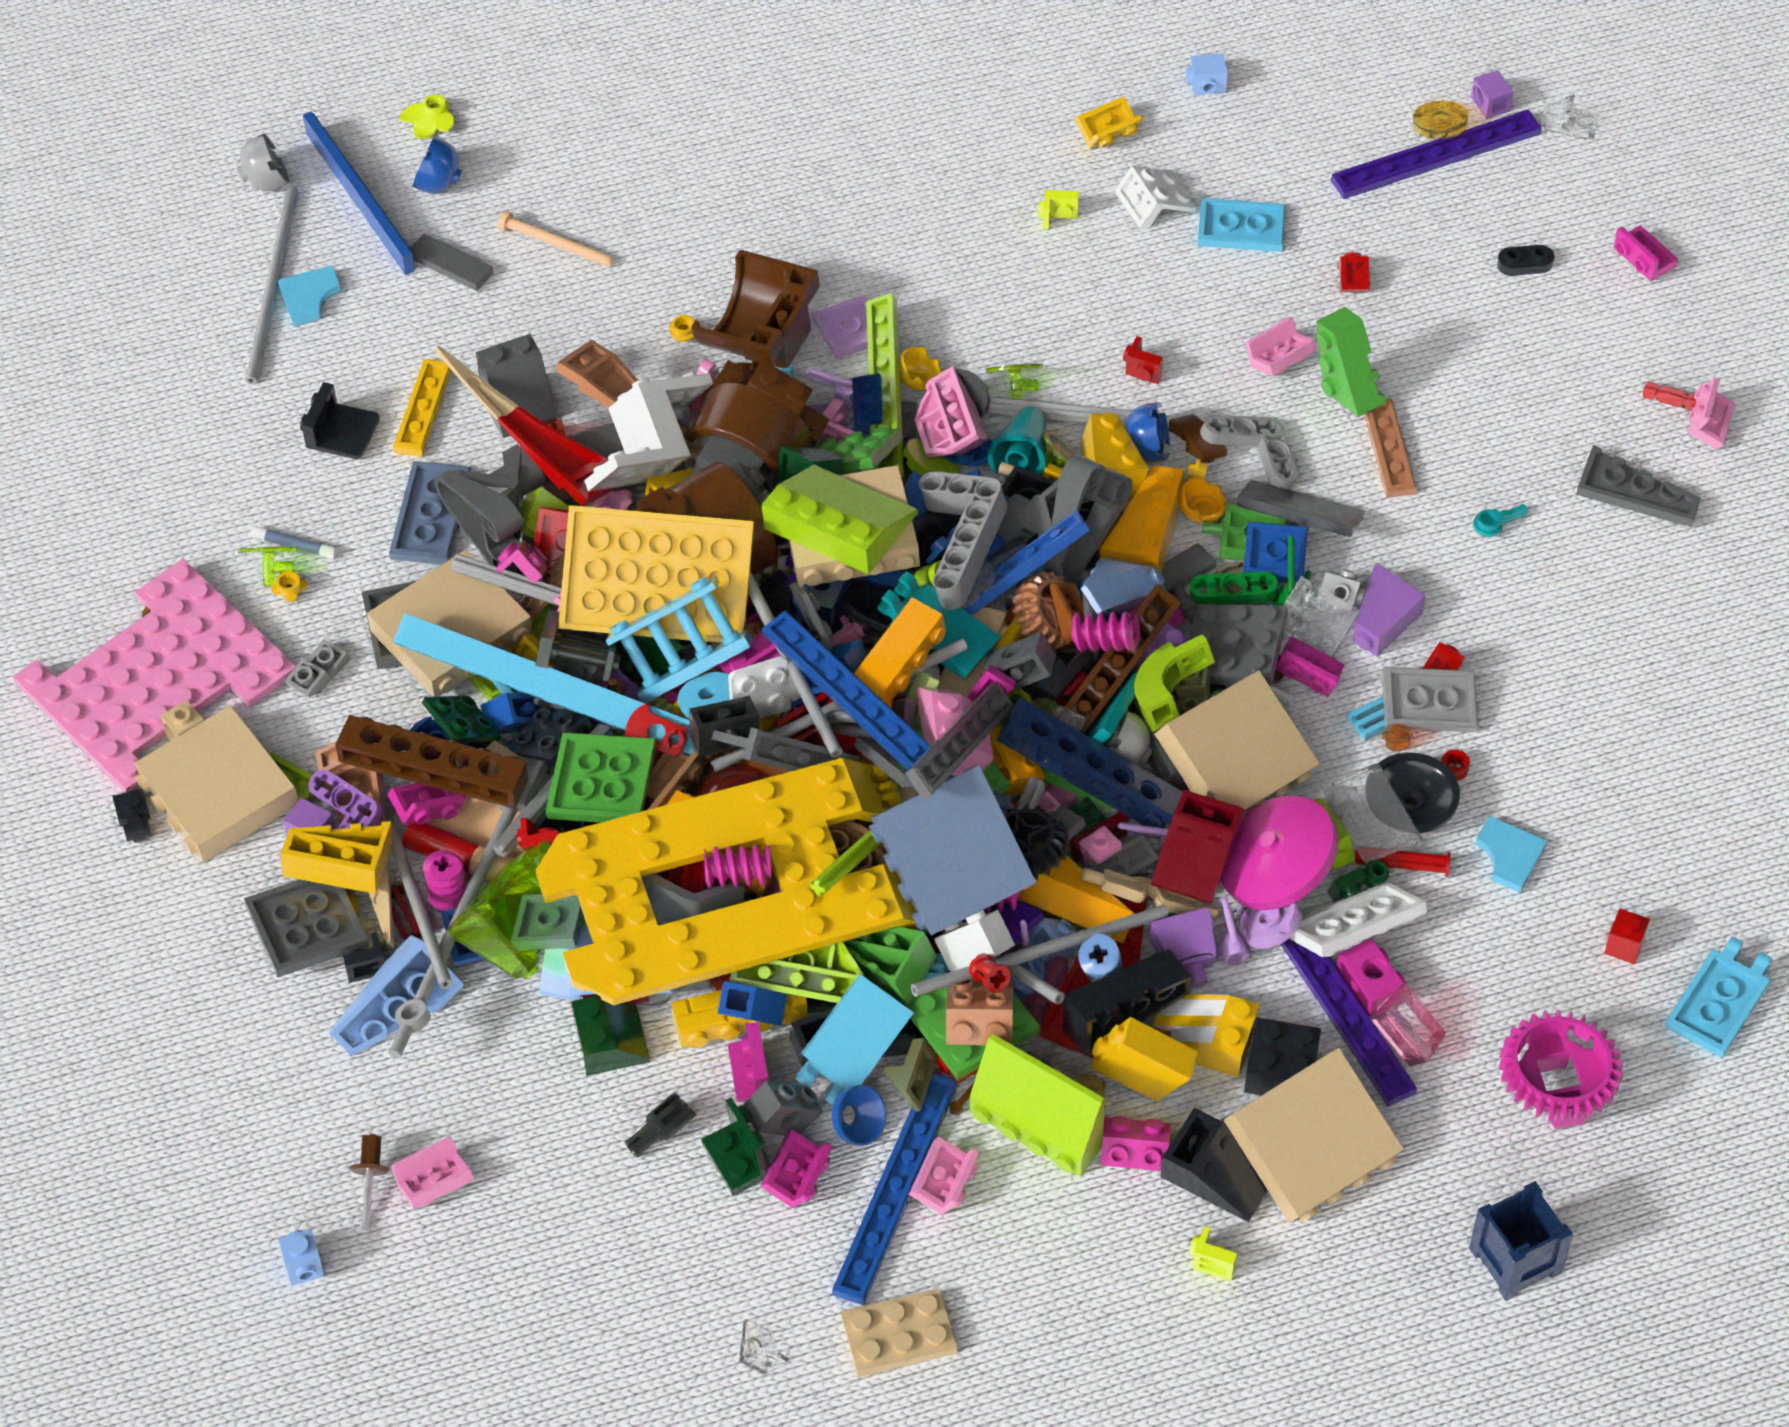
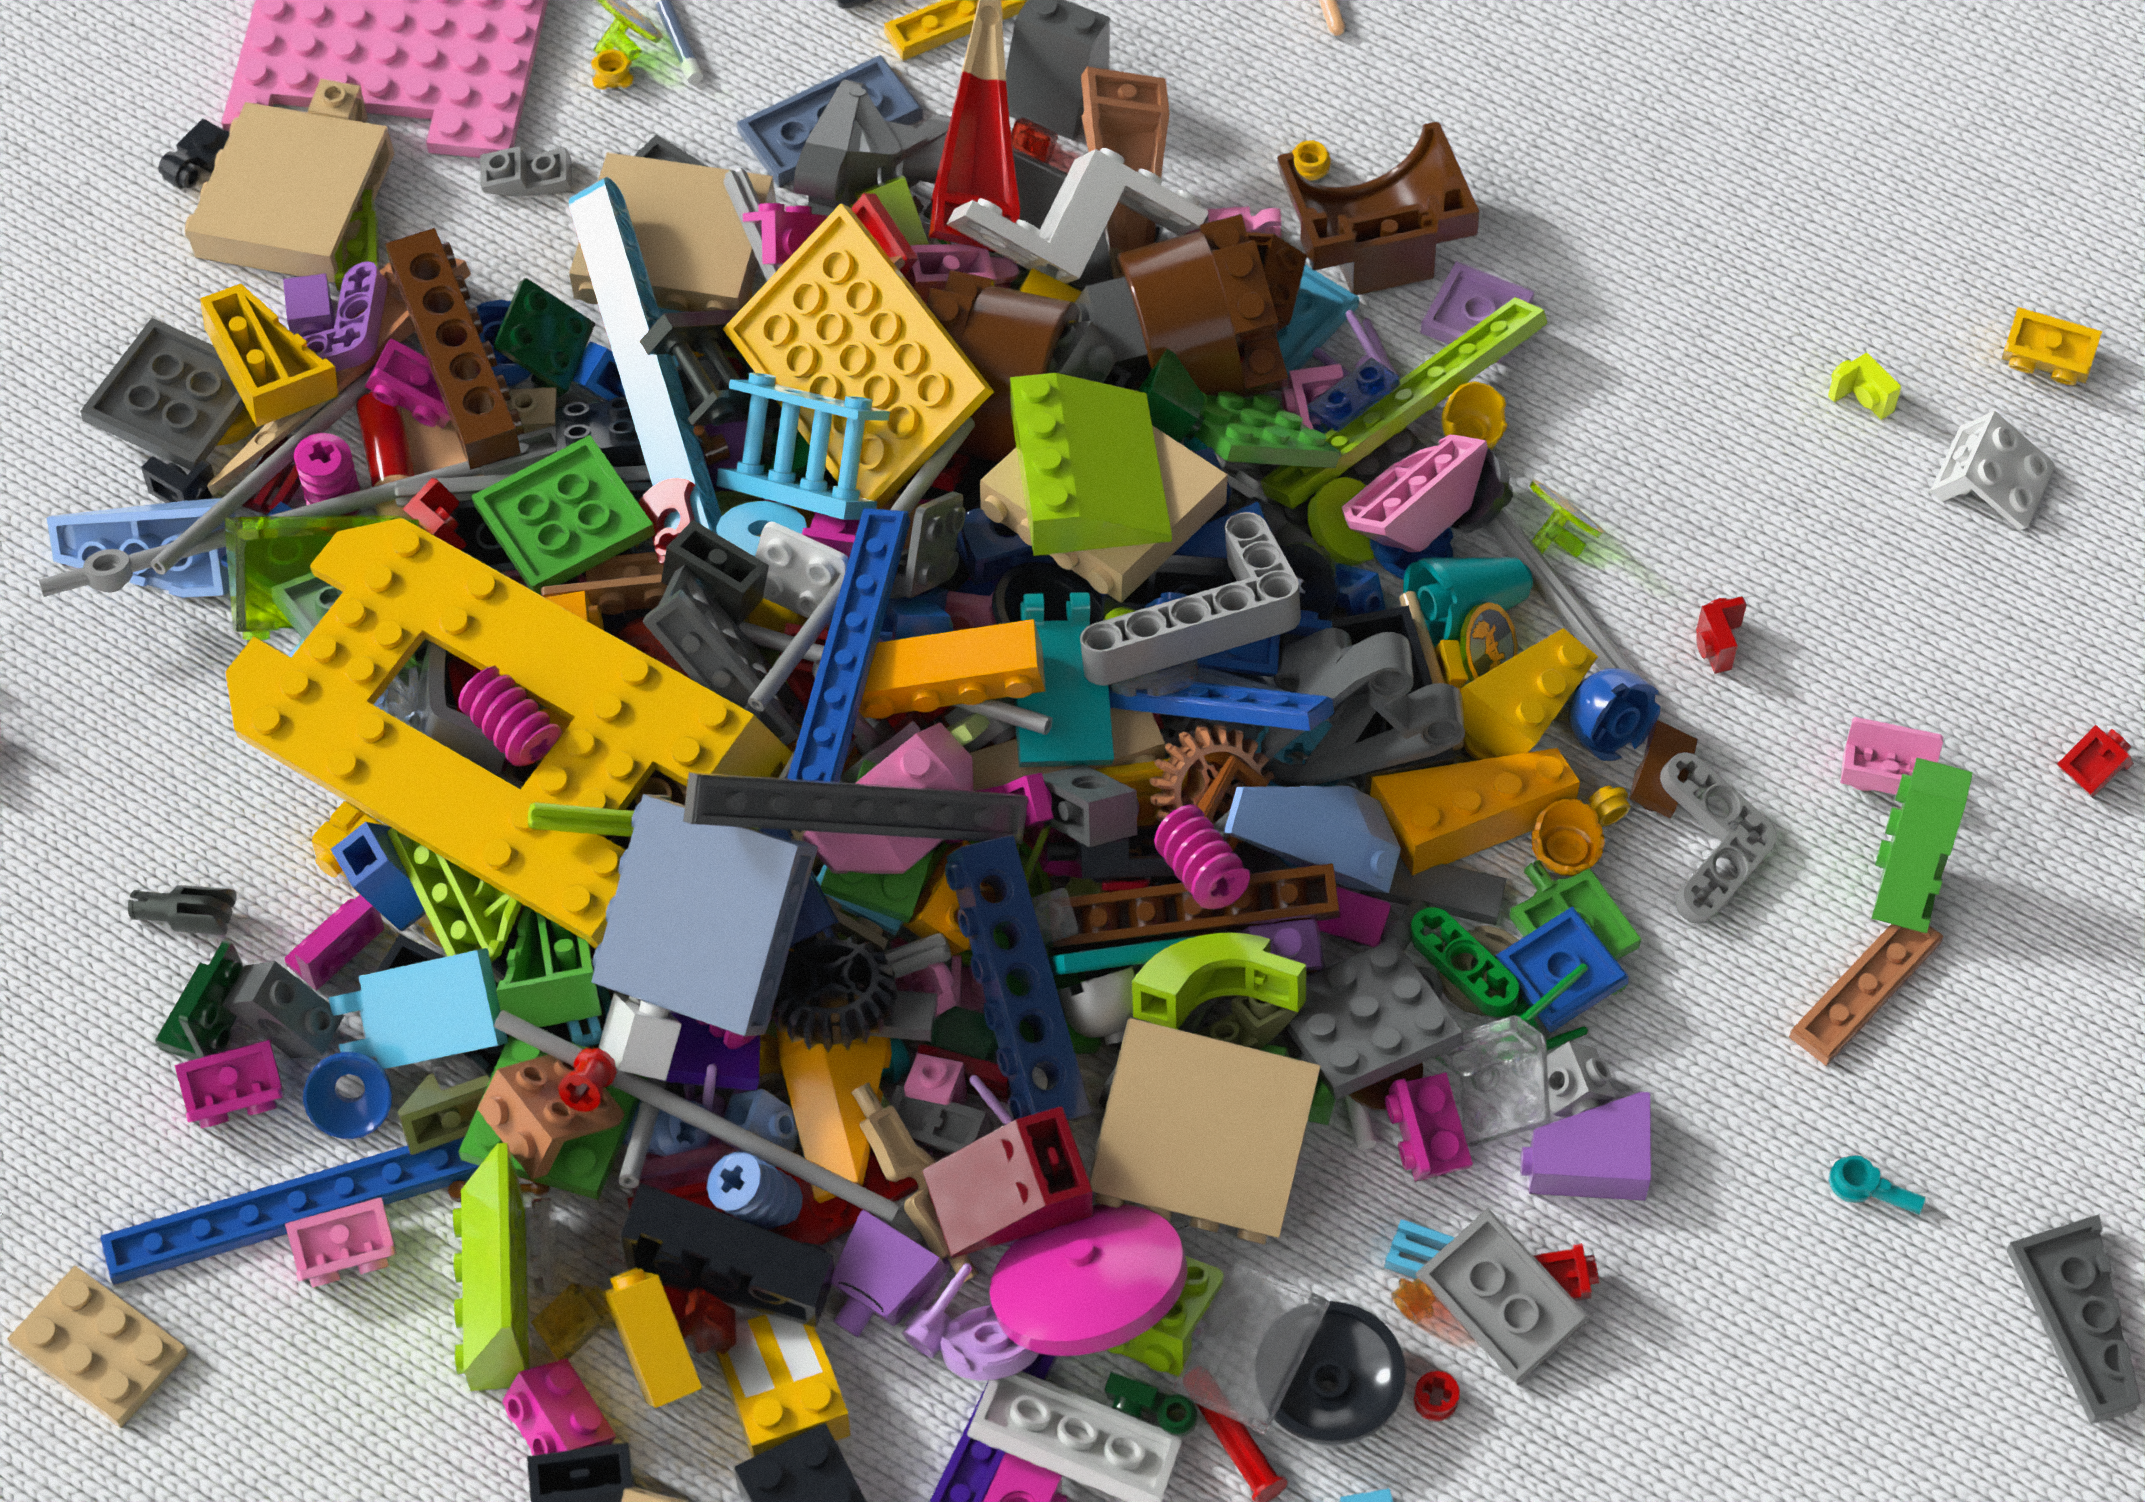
camera: 50 degrees right, 5 degrees up
(608, 1035) = (257, 787): dark green slope -> none
(1241, 224) = (2051, 591): medium azure tile -> none
(1300, 508) = (1660, 951): black tile -> none

